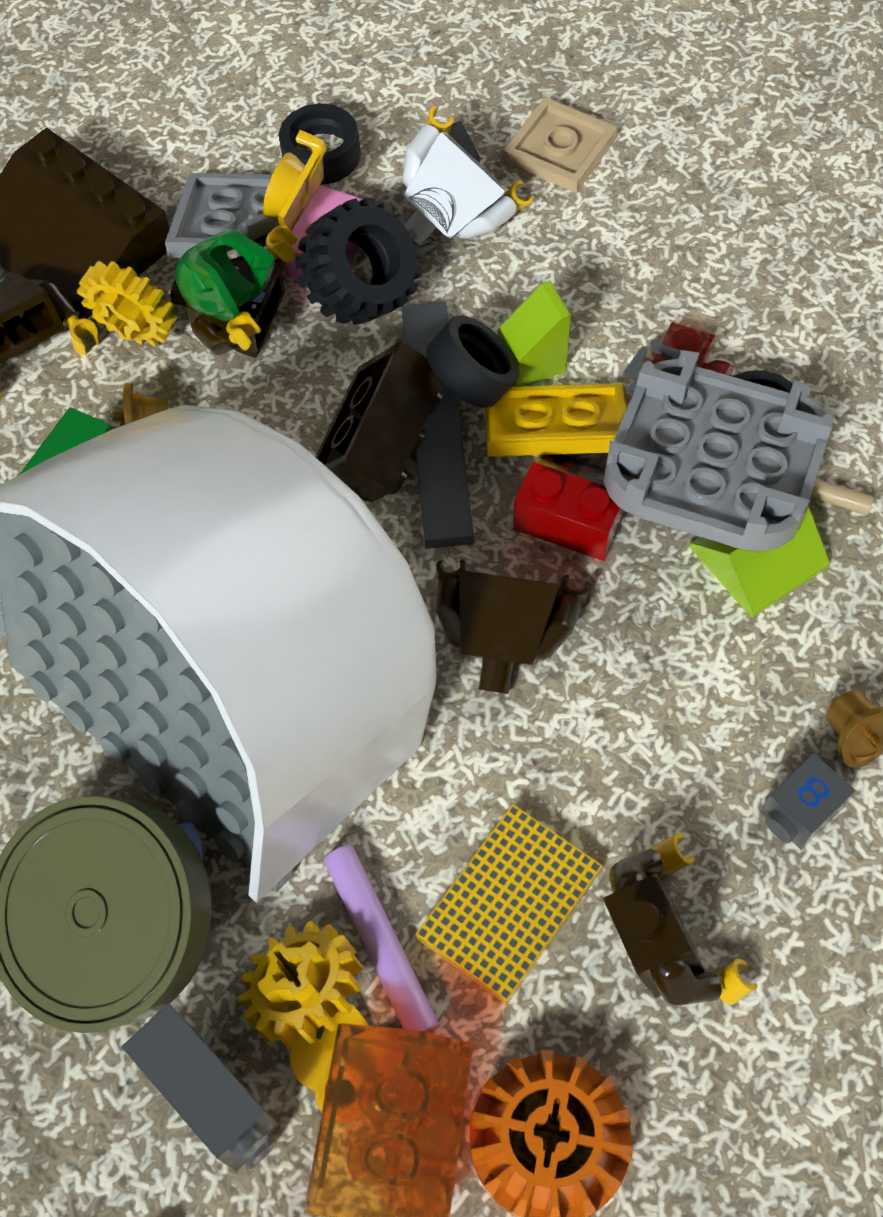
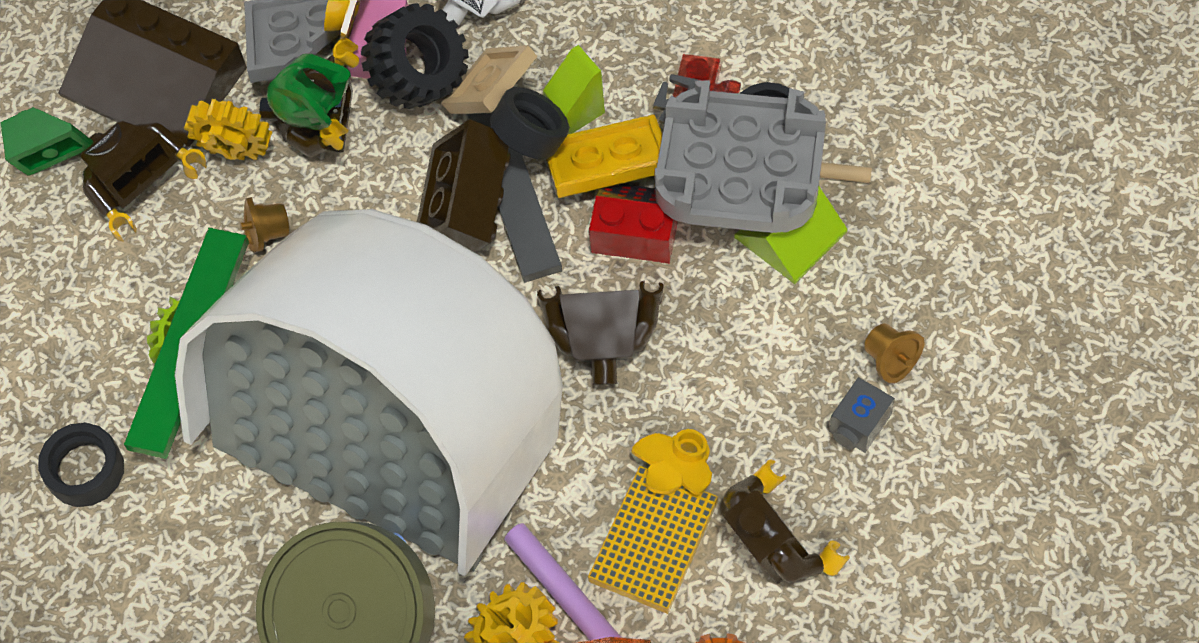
camera: 10 degrees left, 0 degrees up
(437, 303) = (489, 79): none -> tan tile
(553, 814) = (672, 465): none -> yellow plate

